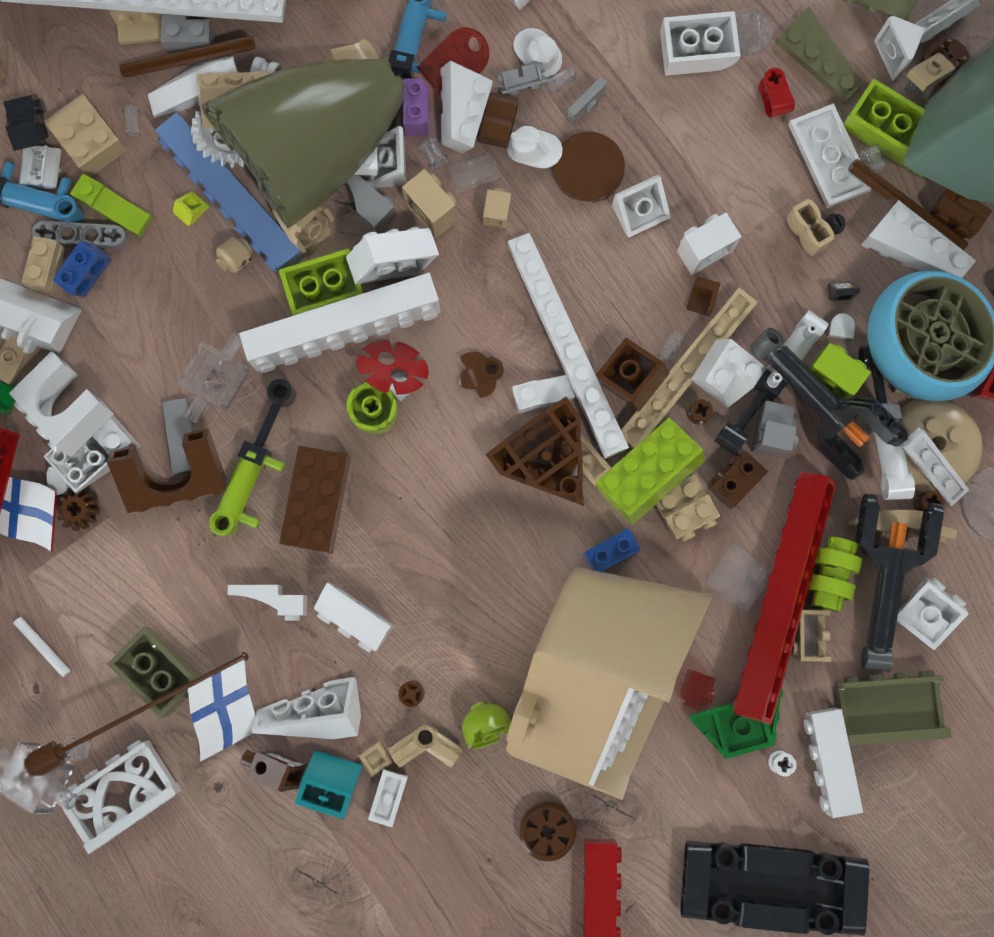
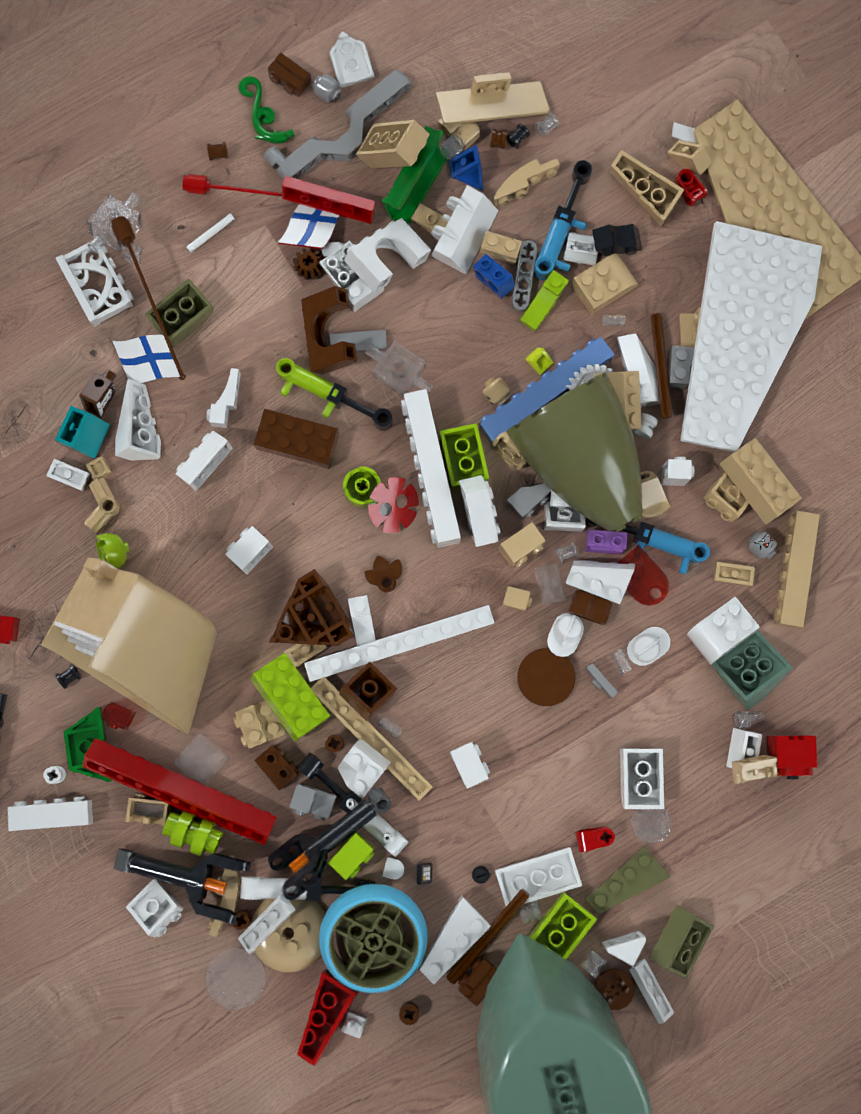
camera: 90 degrees right, 0 degrees up
(321, 26) = (677, 471): none -> white brick
(407, 695) = (139, 496): reddish brown wheel -> none
(467, 542) = (248, 549): none -> white brick
(513, 82) = (623, 638): light grey hinge -> none
(539, 845) = (37, 598): reddish brown wheel -> none
(611, 551) = (231, 660): blue brick -> none
(641, 206) = (506, 716): white slope -> none
(654, 762) = (62, 677): none -> black bush
(703, 296) = (428, 757): reddish brown panel -> none
(807, 224) = (481, 848): tan brick -> none
(892, 708) = (84, 867): olive panel -> none
(931, 71) = (600, 970): tan plate -> none

